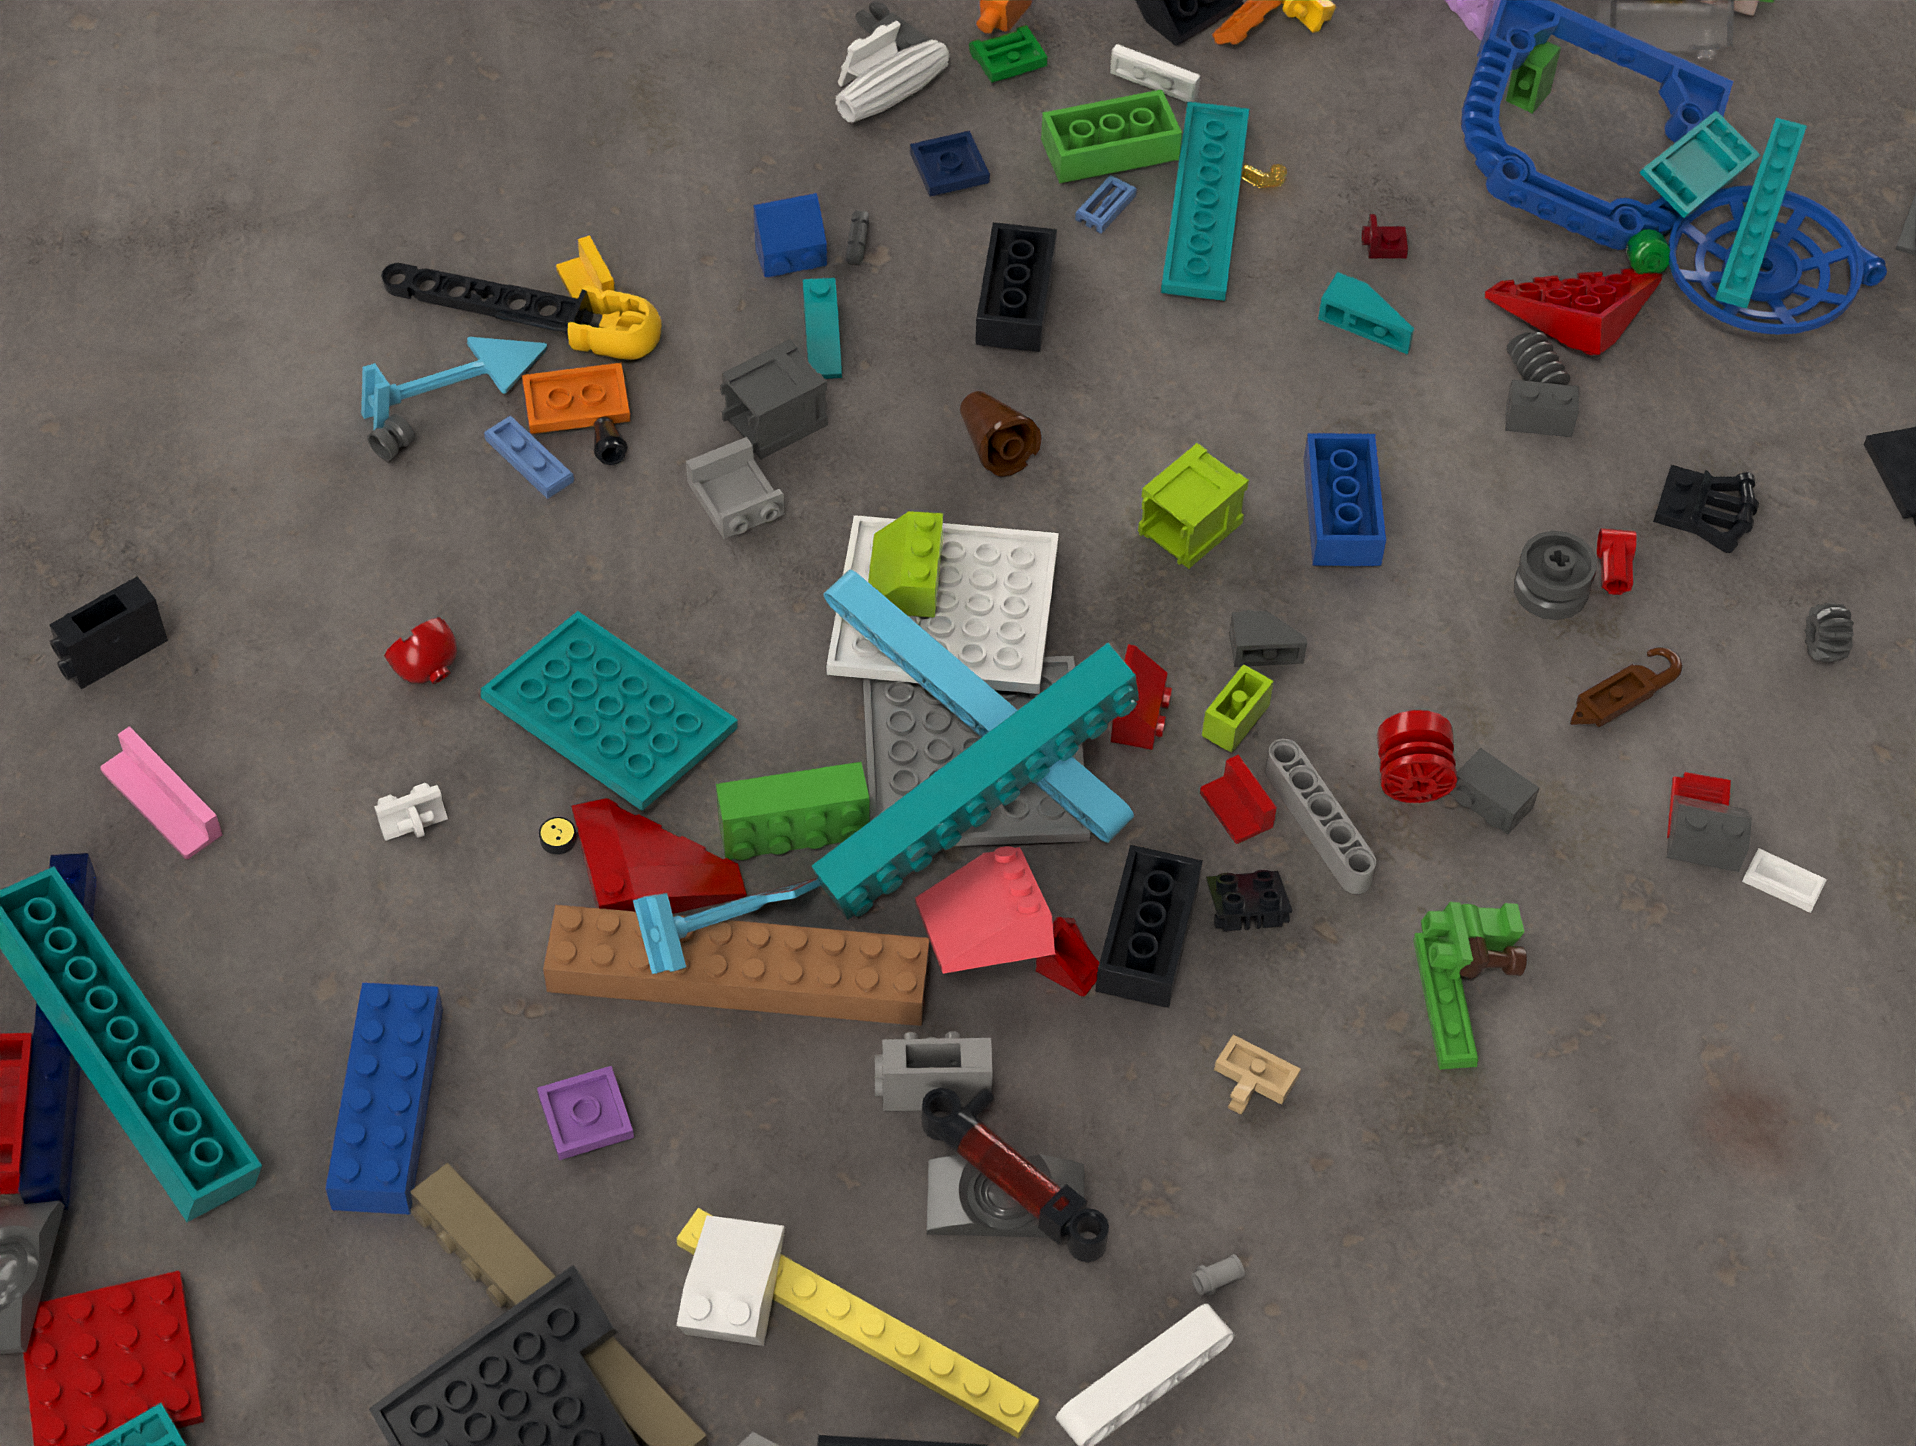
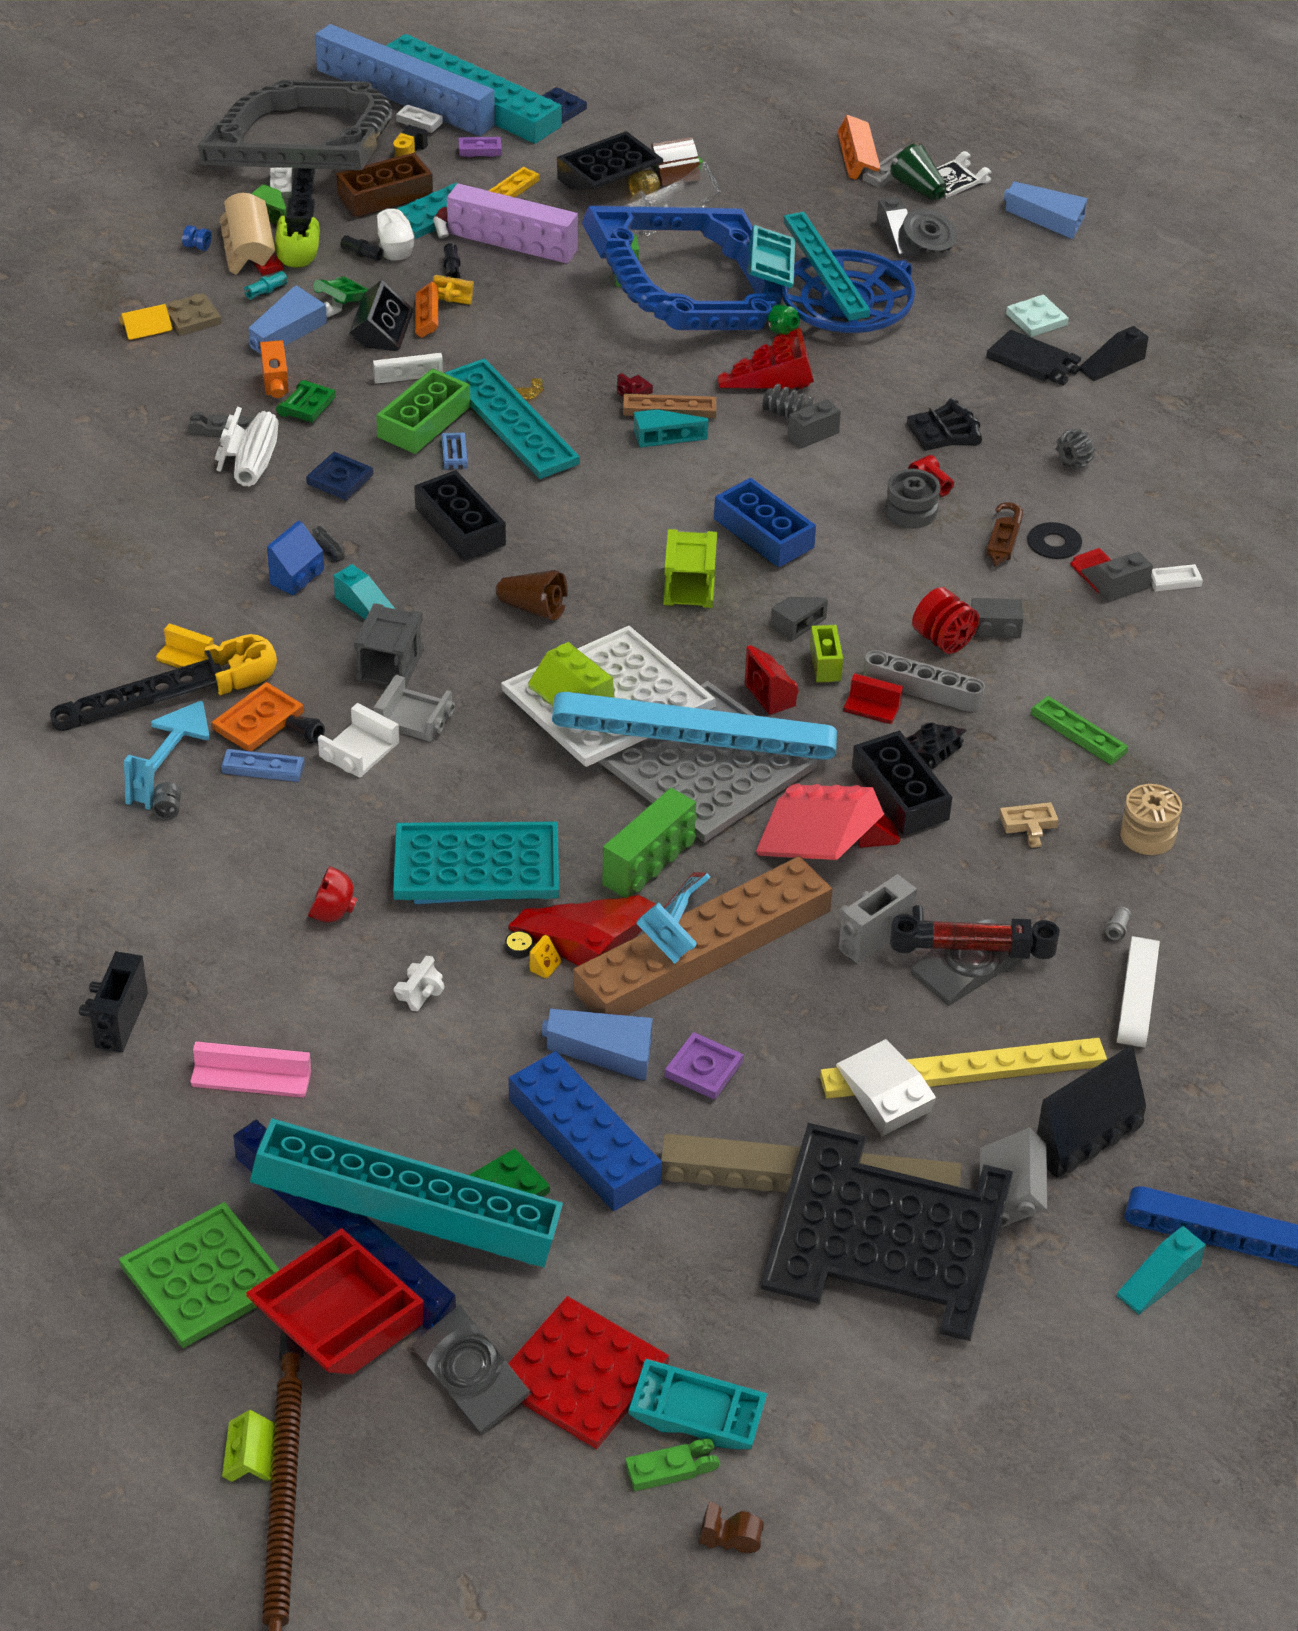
camera: 40 degrees left, 10 degrees down
(265, 1099) = (514, 1172): none -> green plate
(519, 1010) = (601, 1039): none -> medium blue slope
(560, 869) = (544, 958): none -> yellow slope
(643, 495) = (361, 743): none -> white panel
(977, 782) = (751, 758): teal brick -> none
(1385, 1191) = (1151, 819): none -> tan wheel
(1400, 287) = (691, 405): none -> medium nougat plate
(1470, 937) = (1067, 690): bright green hips -> none
(1700, 757) = (1070, 548): none -> black gear

